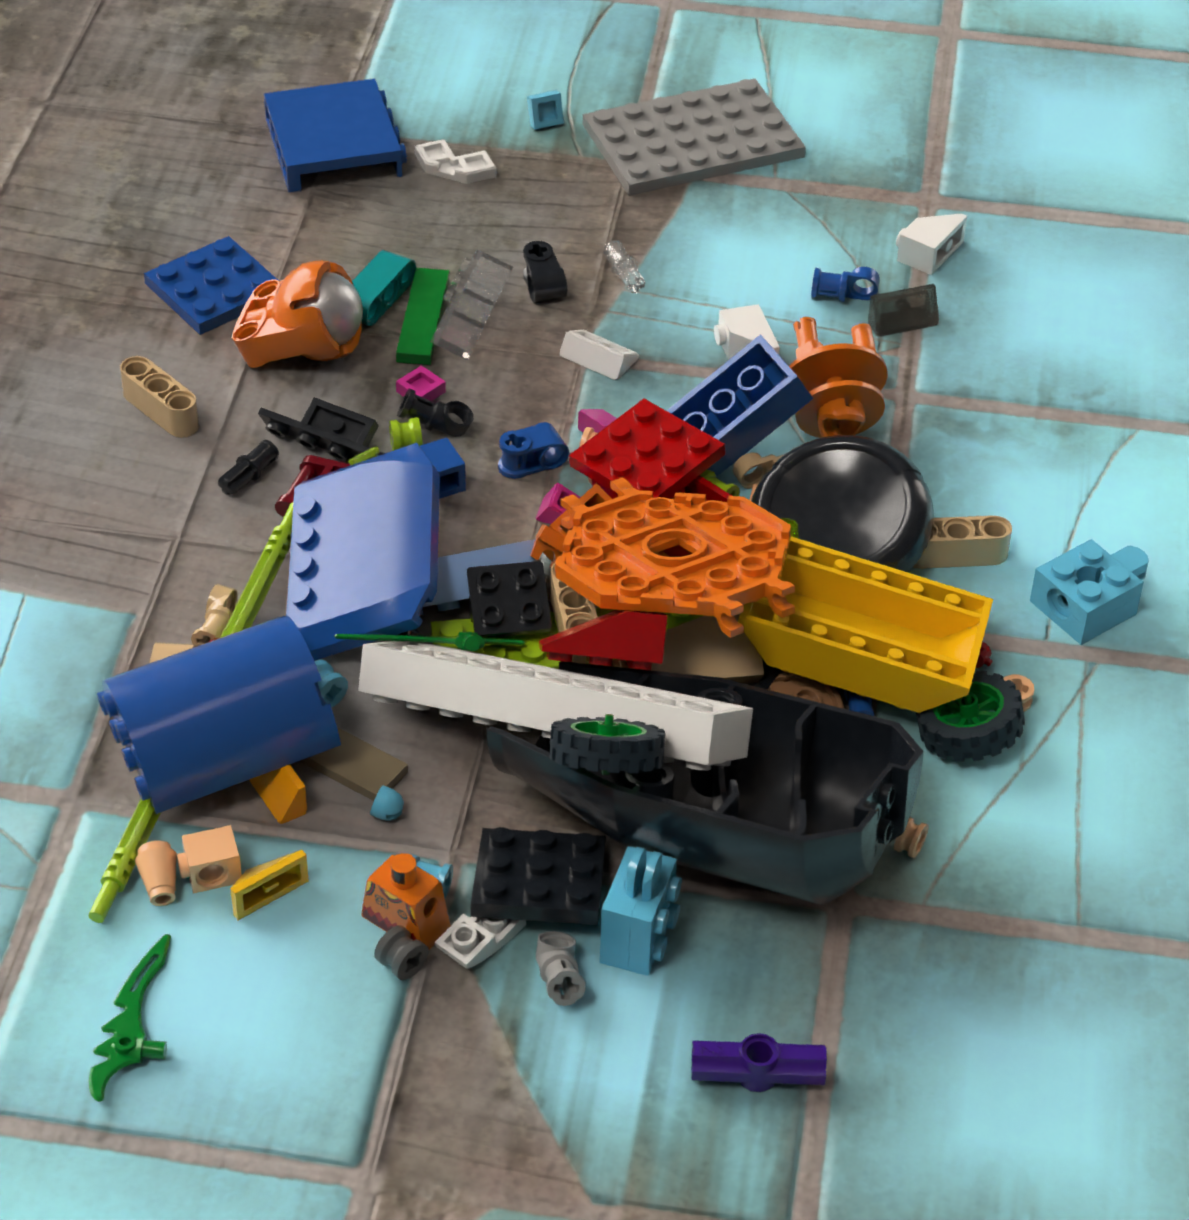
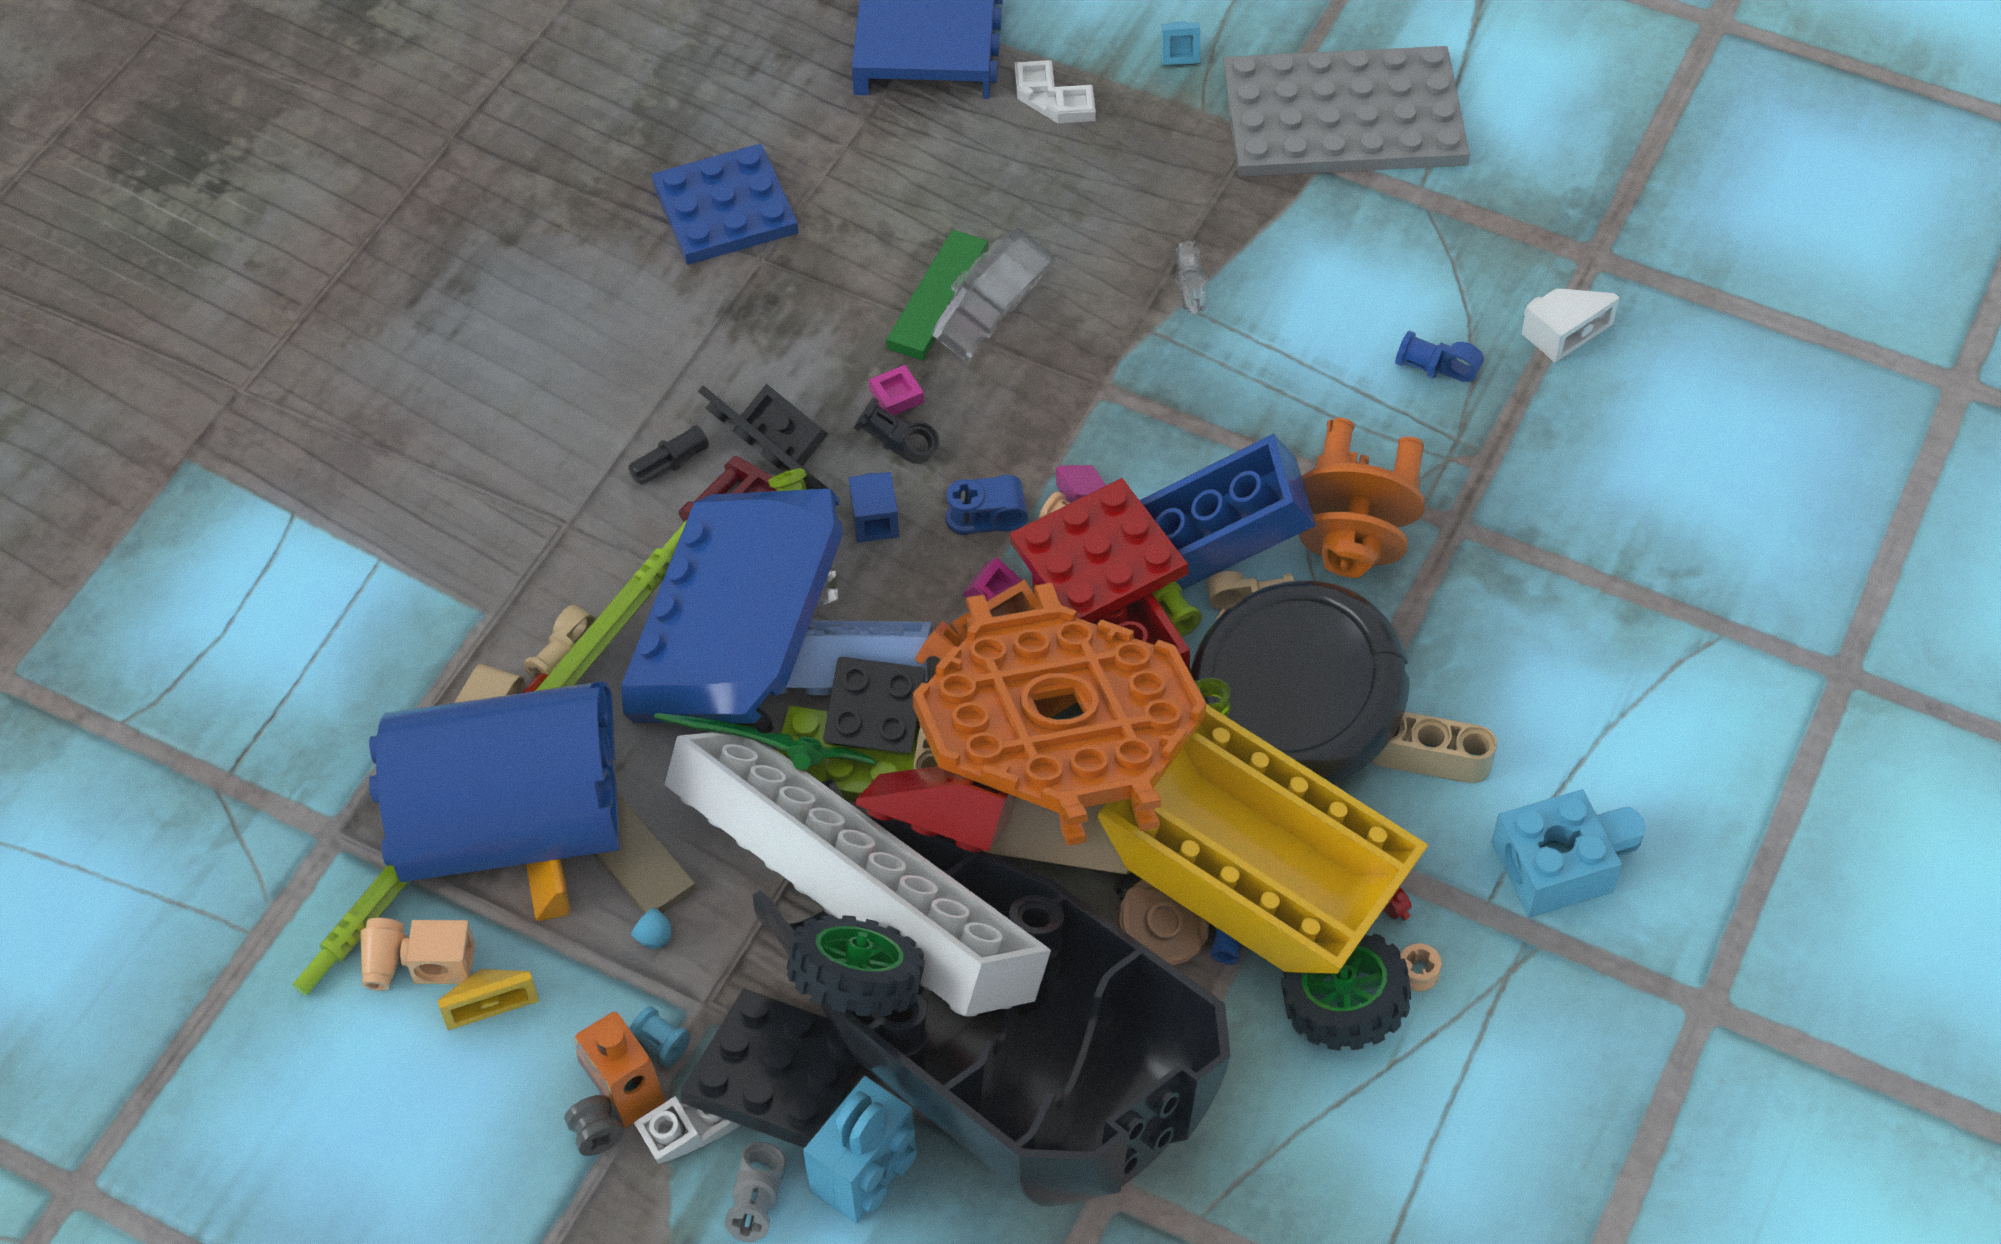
camera: 20 degrees right, 10 degrees up
(129, 1040) = (278, 1153): green piece -> none
(159, 396) = (606, 341): tan beam -> none
(306, 314) = (790, 276): orange piece -> none
(333, 685) = (640, 759): medium azure wheel -> none
(383, 283) = (897, 248): teal beam -> none
(405, 433) = (853, 454): lime wheel -> none
(543, 273) = (1090, 267): black piece -> none
(597, 353) = (1116, 388): white slope -> none
(740, 327) = (1293, 407): white slope -> none
(903, 310) = (1496, 410): clear smoke slope -> none
(912, 838) = (1215, 1130): light nougat bush -> none

